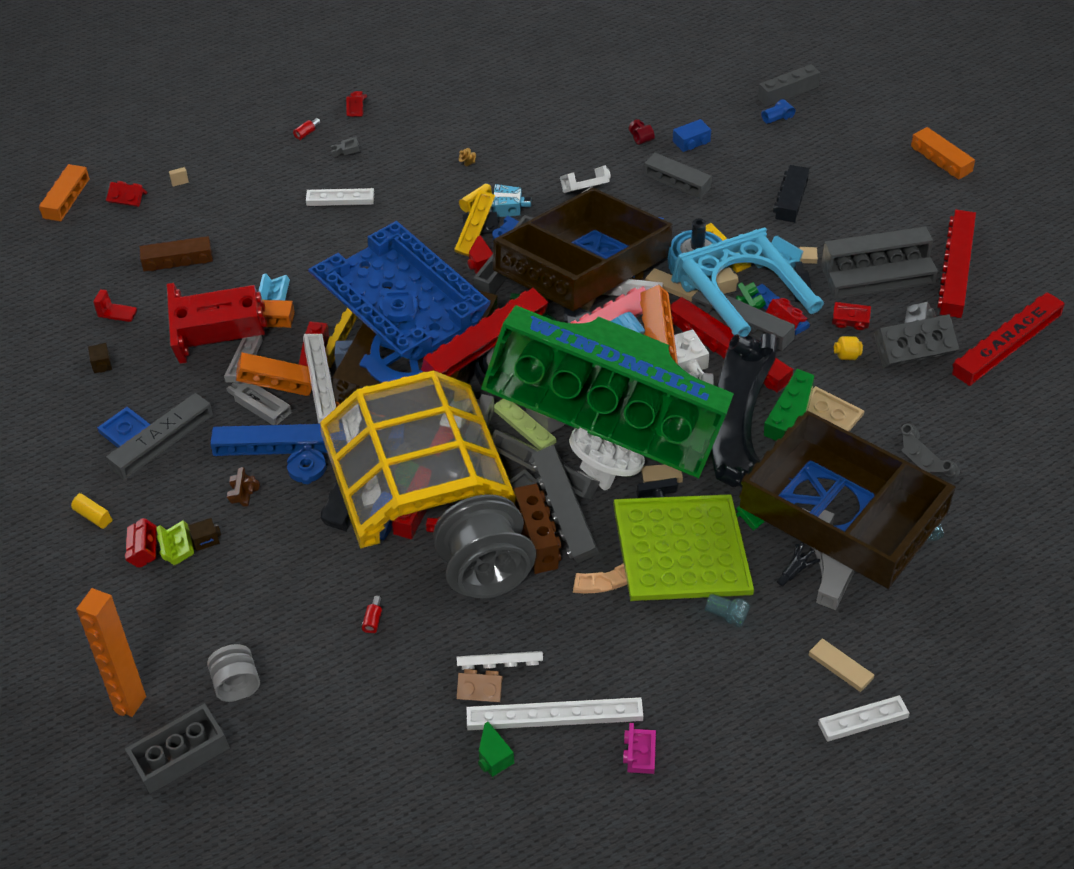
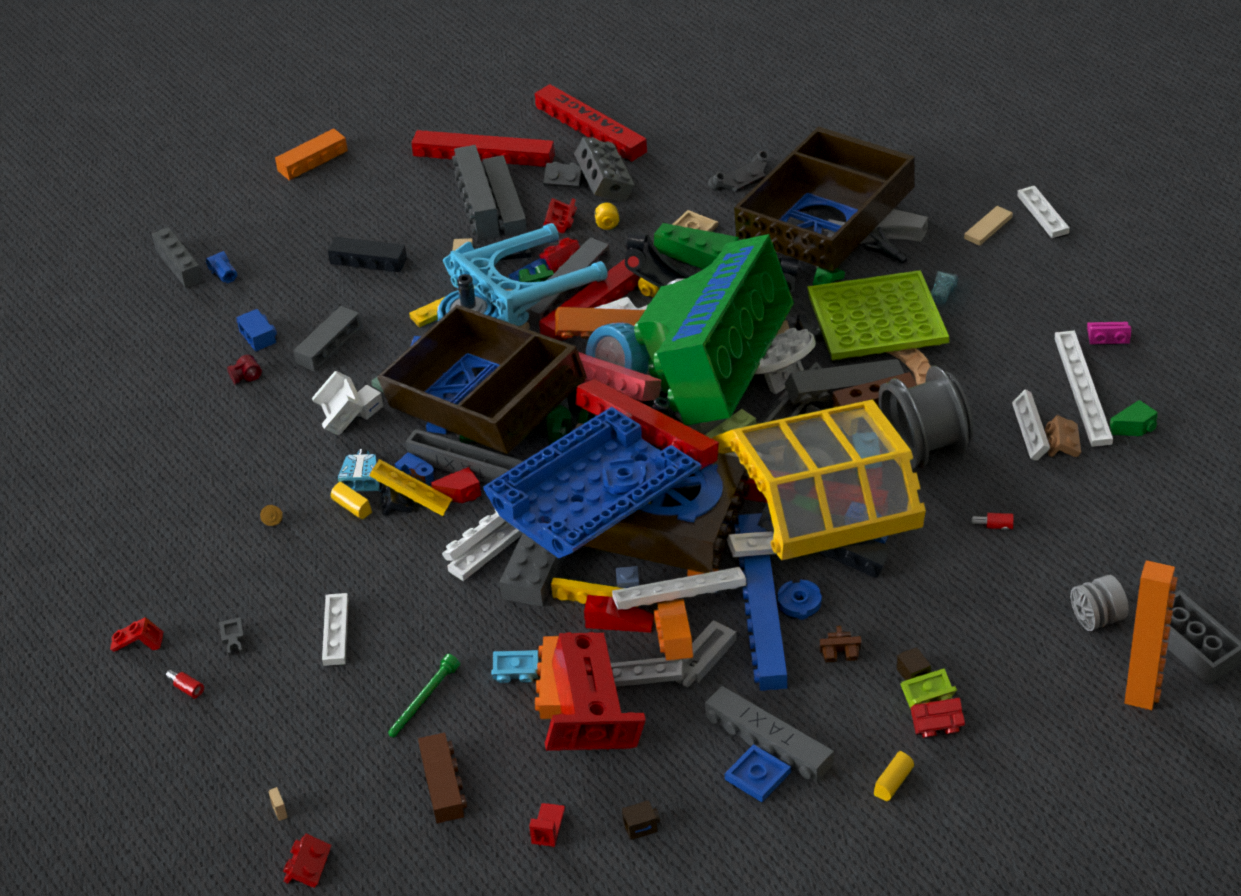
camera: 90 degrees left, 5 degrees down
(287, 257) = (448, 665): none -> green piece

